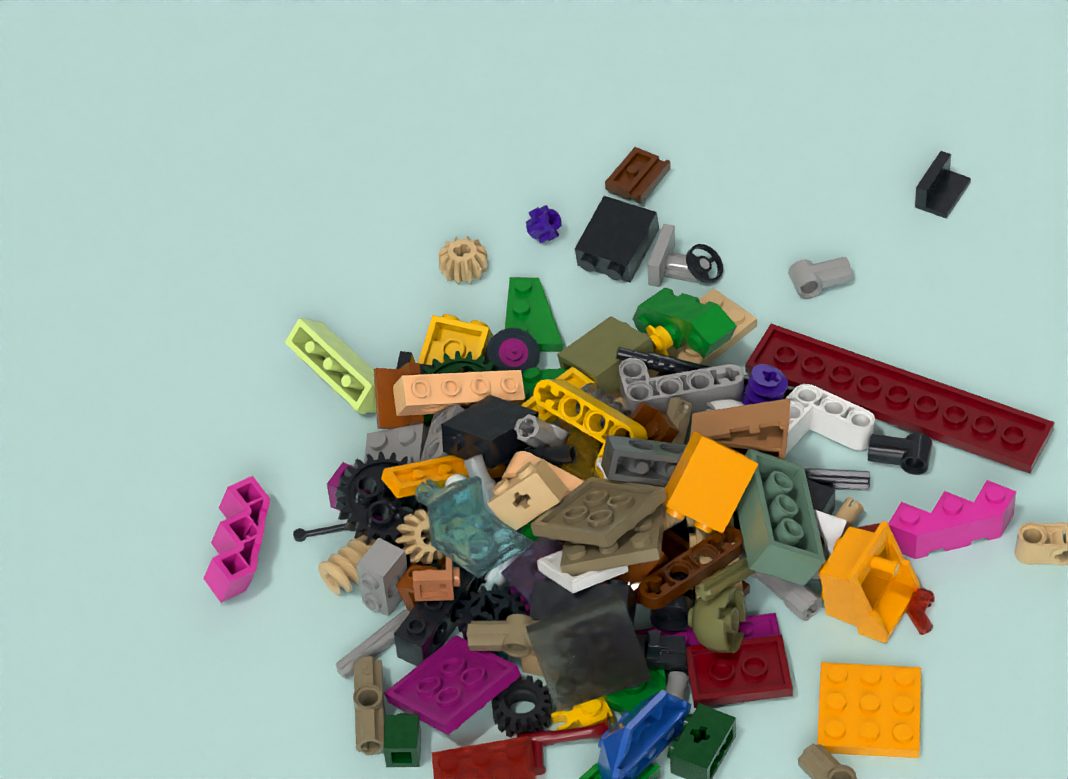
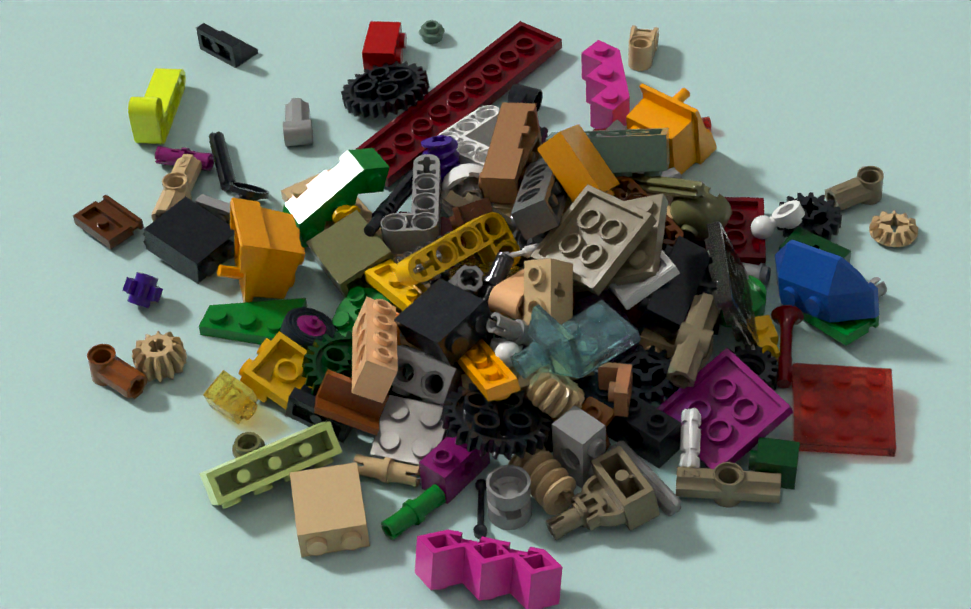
camera: 80 degrees left, 5 degrees down
(298, 421) = (329, 509): none -> tan brick
(306, 479) = (413, 512): none -> green pin
(322, 536) = (509, 497): none -> light grey wheel
(337, 617) = (609, 497): none -> dark tan brick
(354, 444) = (388, 470): none -> tan pin
(368, 350) = (246, 443): none -> olive plate
(412, 664) = (690, 438): none -> white axle
(414, 320) = (227, 390): none -> clear yellow brick
(442, 229) = (114, 372): none -> dark orange piece
(588, 283) = (264, 250): none -> light orange piece
(691, 210) = (177, 184): none -> tan piece
(741, 701) = (785, 216): none -> white plate
(743, 216) = (169, 156): none -> magenta pin
(751, 233) = (221, 160): none -> black axle
(771, 734) = (819, 217): none -> black gear
(815, 162) = (154, 113): none -> neon yellow beam
(869, 710) = (784, 165): light orange plate -> none
(893, 331) = (385, 89): none -> black gear
(969, 313) = (383, 44): none -> red brick
(1021, 352) = (431, 32): none -> sand green plate

